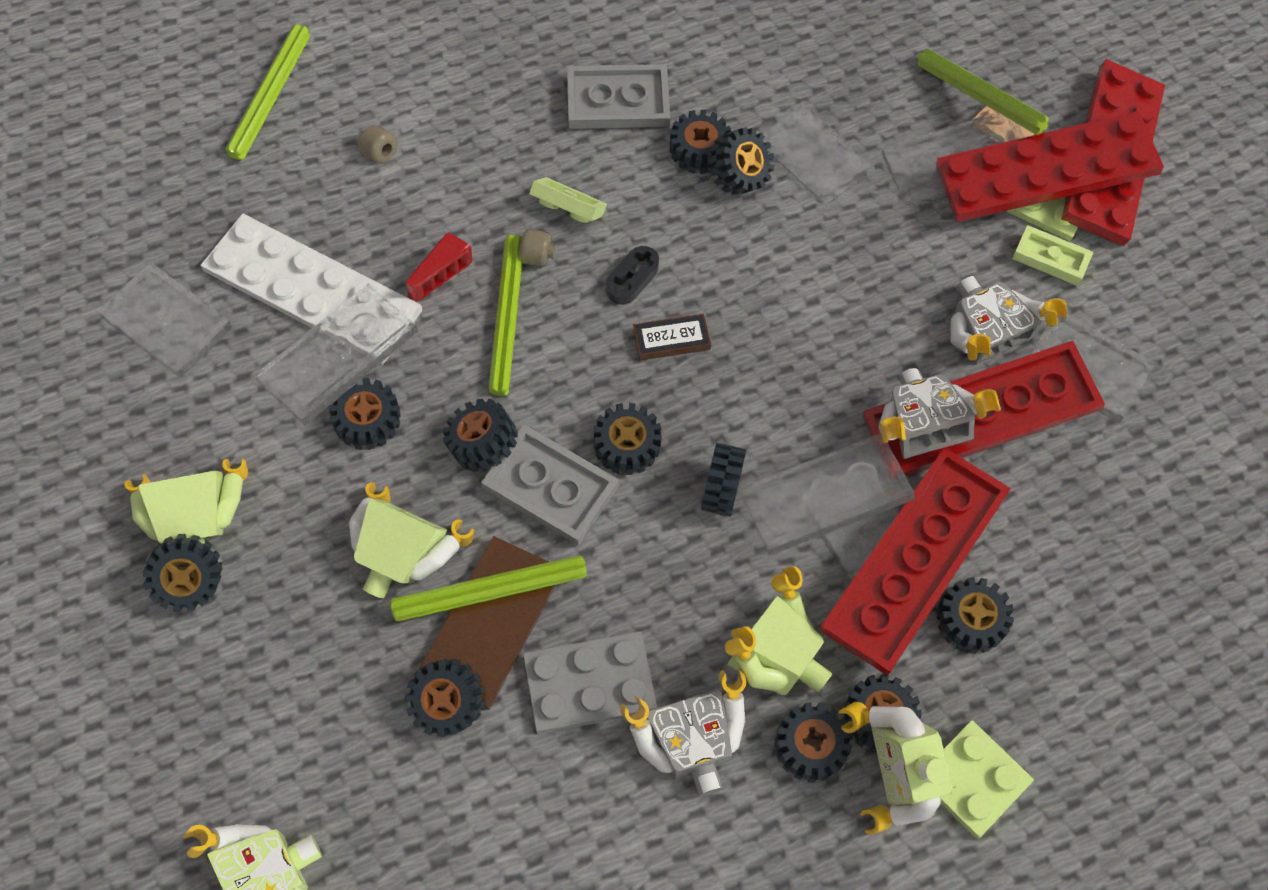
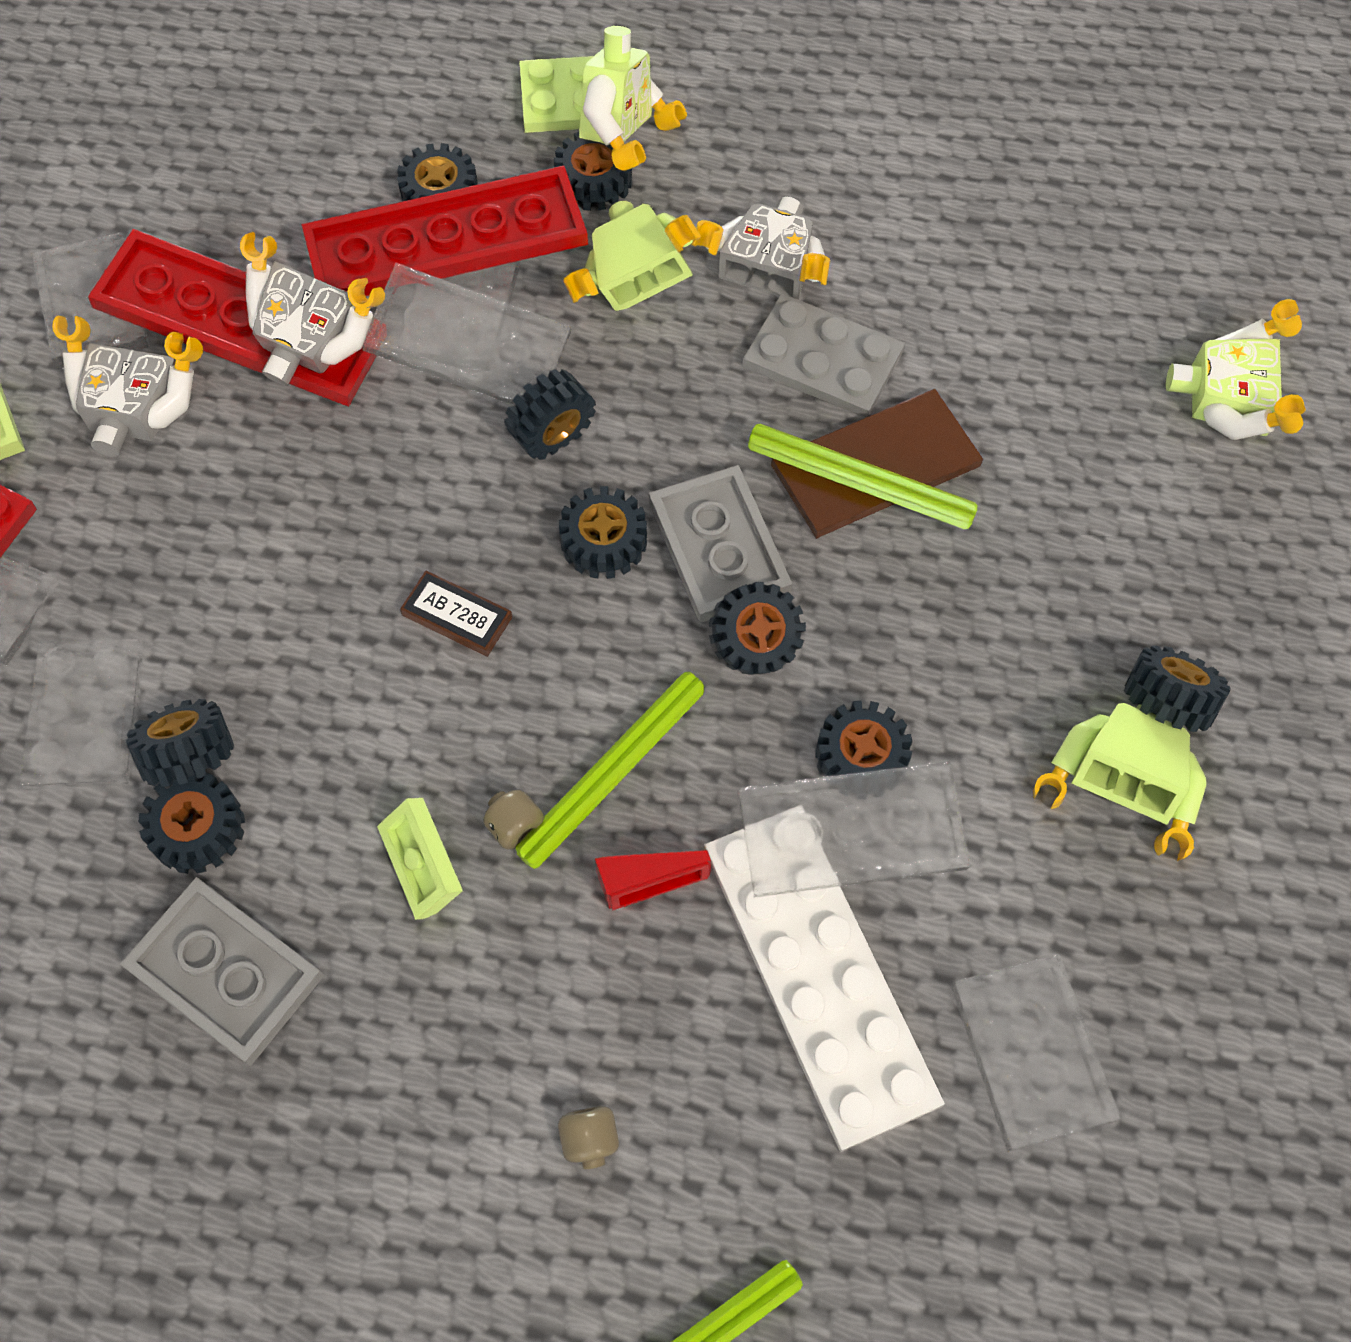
camera: 140 degrees left, 0 degrees up
(398, 542) = (923, 575): yellowish green torso -> none
(434, 706) = (973, 409): black wheel -> none
(638, 279) = (435, 723): black beam -> none
(803, 753) = (672, 183): black wheel -> none

